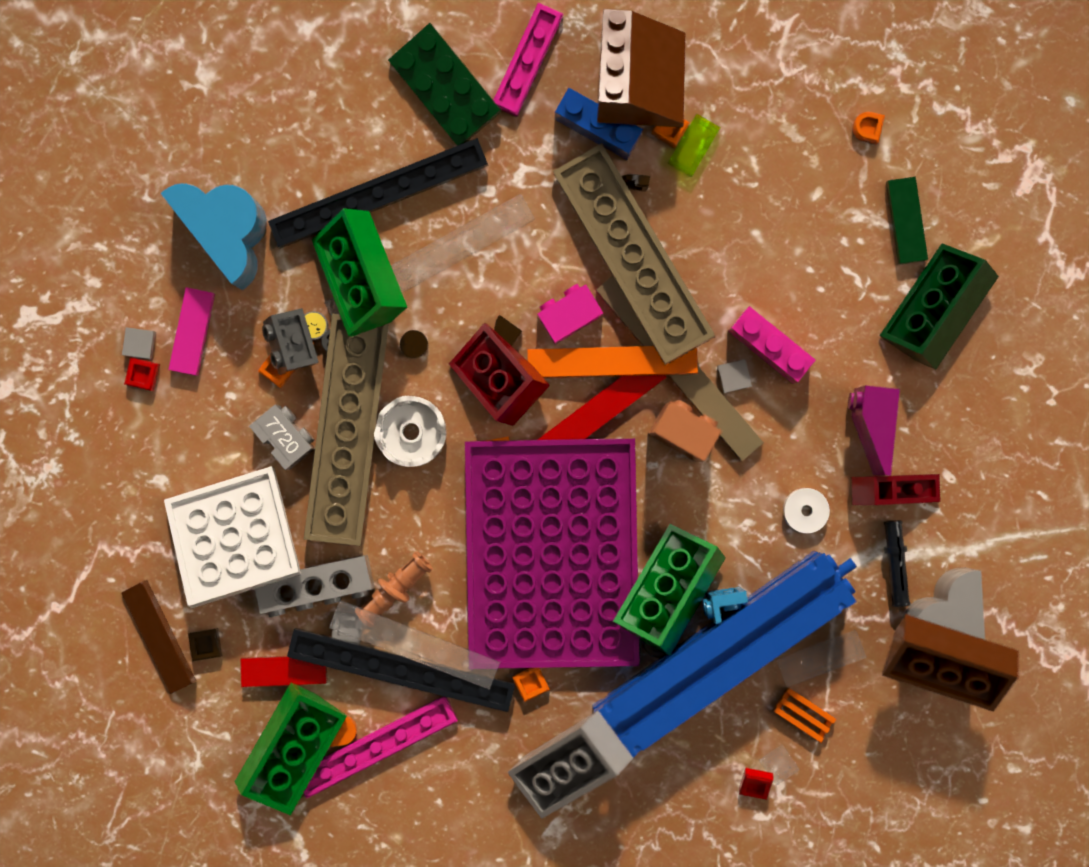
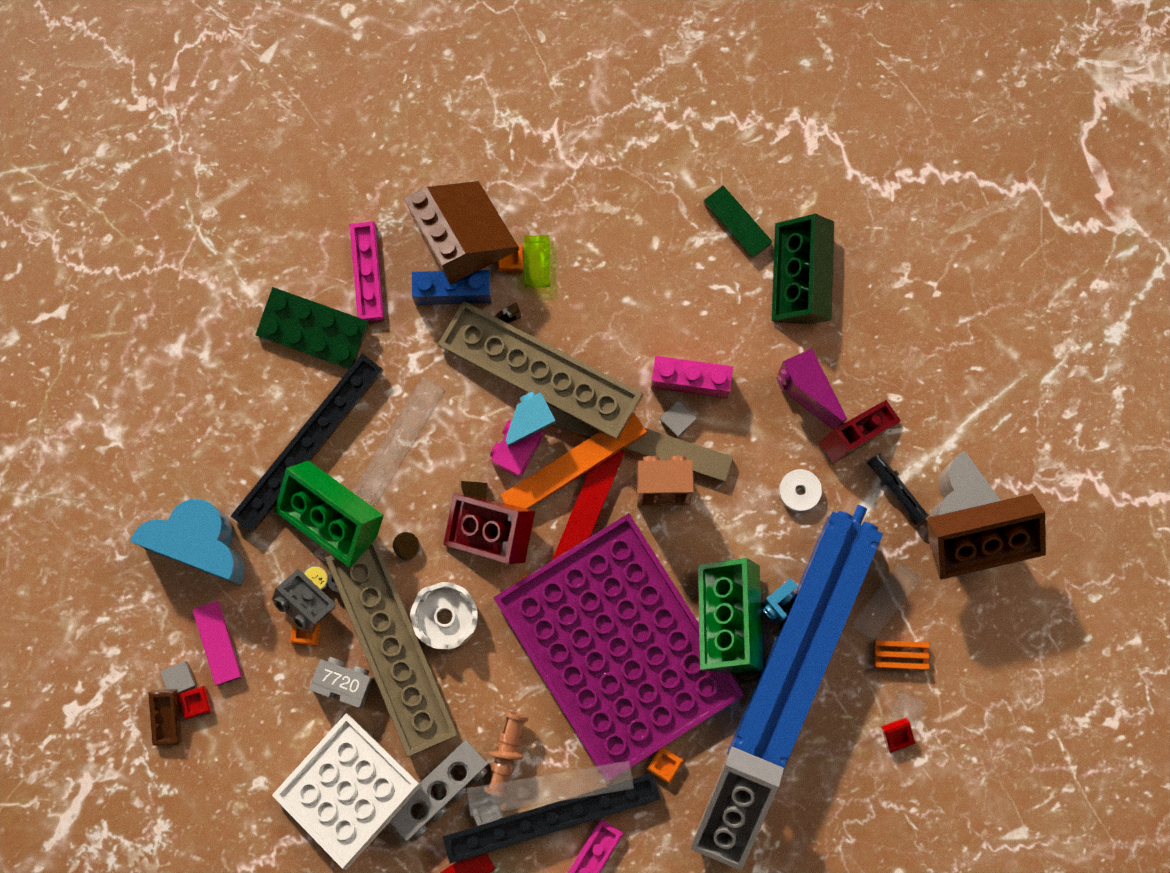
camera: 30 degrees left, 10 degrees down
(107, 371) = (164, 717): none -> reddish brown plate
(595, 296) = (529, 418): none -> medium azure slope
(868, 127) = (663, 169): orange tile -> none

